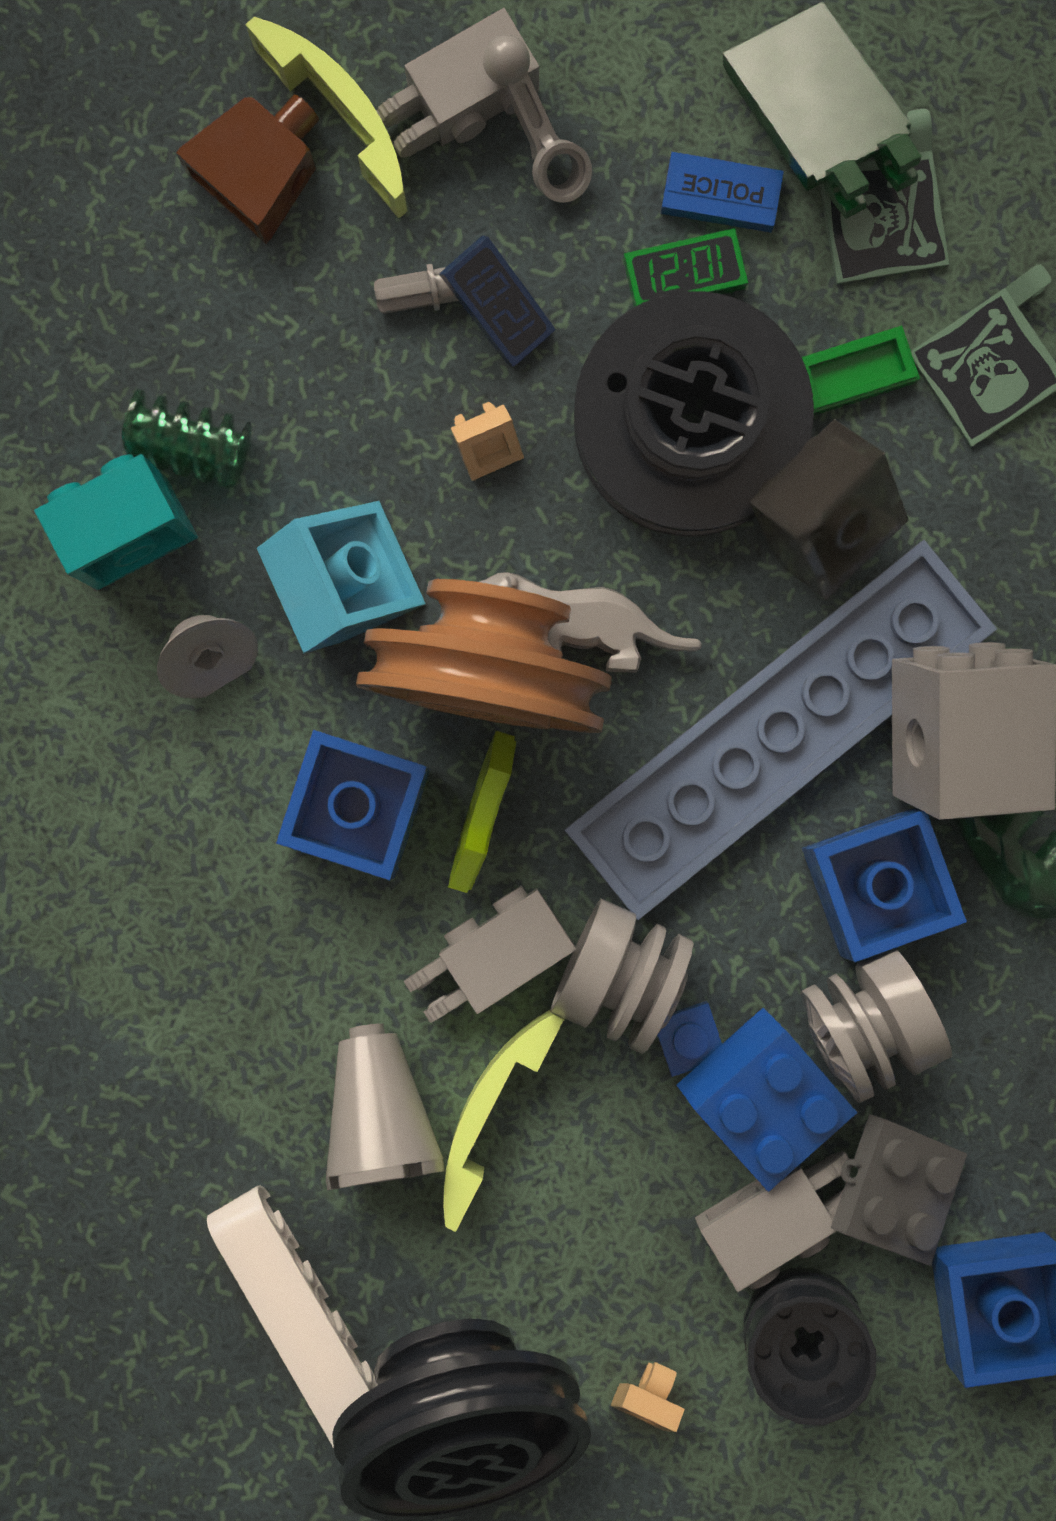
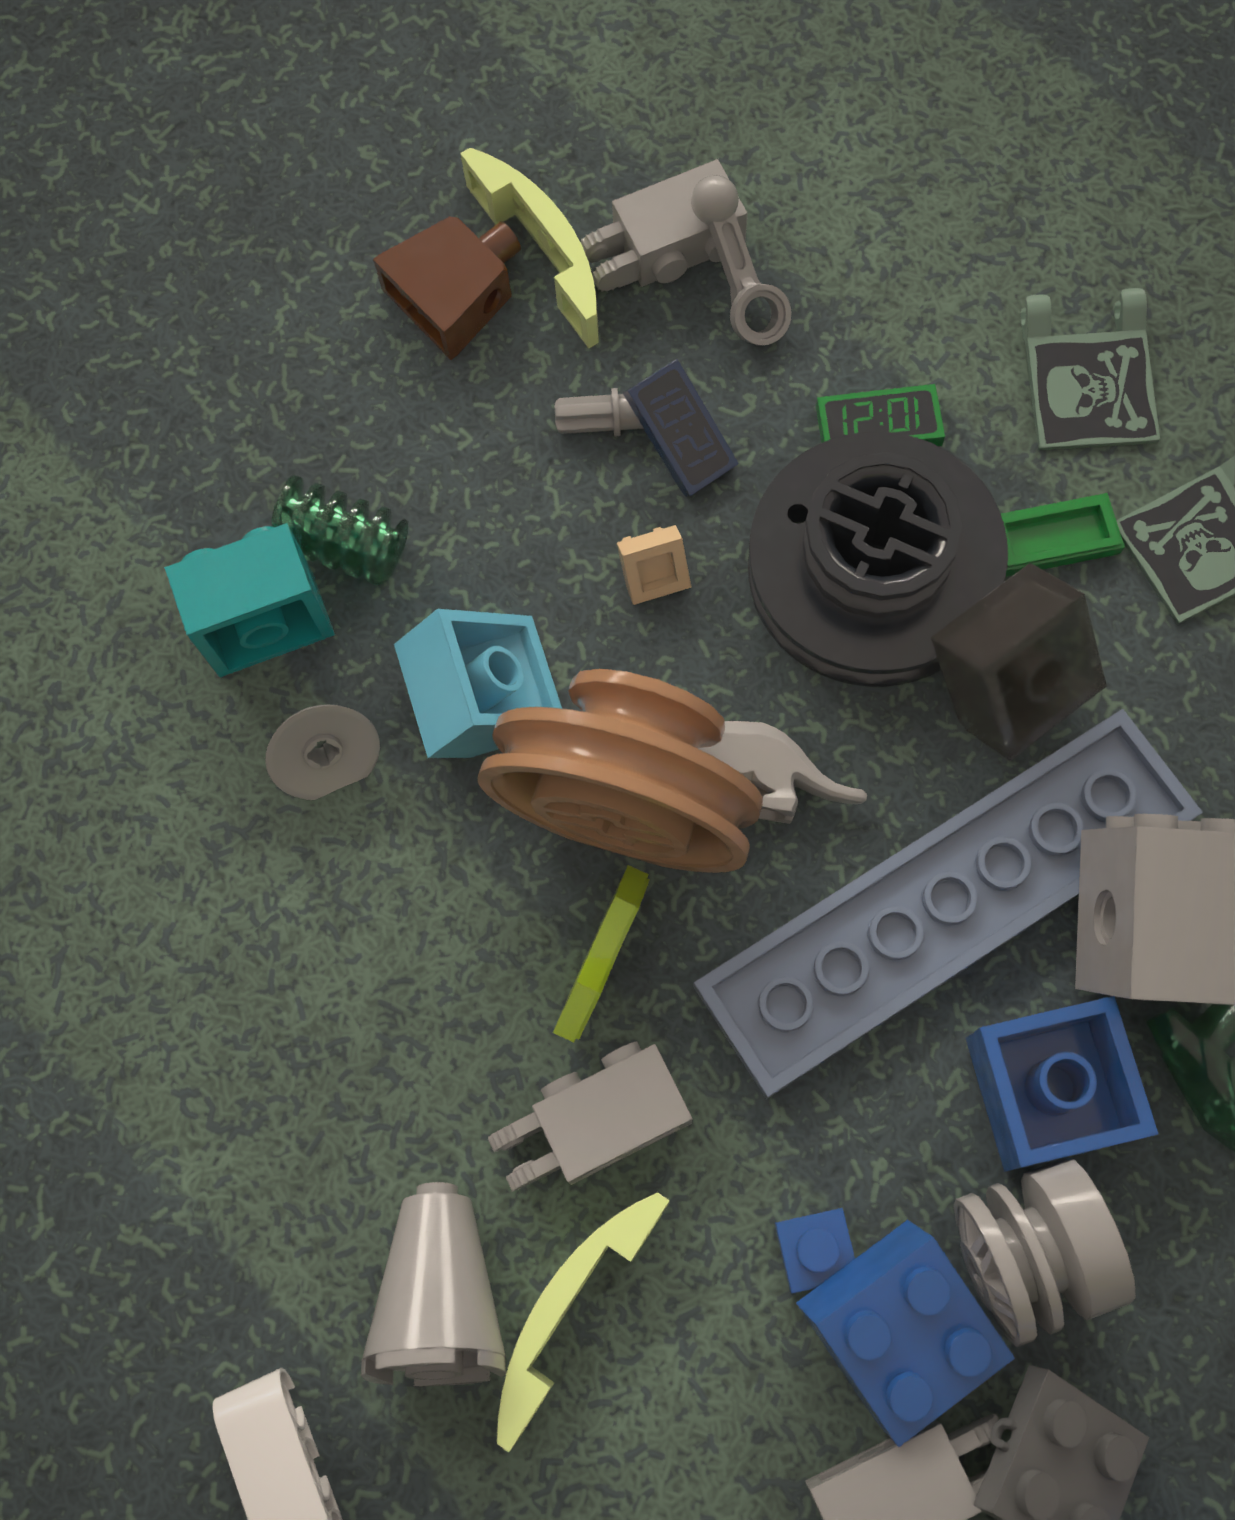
camera: 15 degrees right, 15 degrees down
(353, 805) = (459, 925): blue brick -> none
(623, 976) = (743, 1156): light grey wheel -> none
(722, 192) = (924, 351): blue tile -> none
(823, 107) = (1036, 278): tile -> none

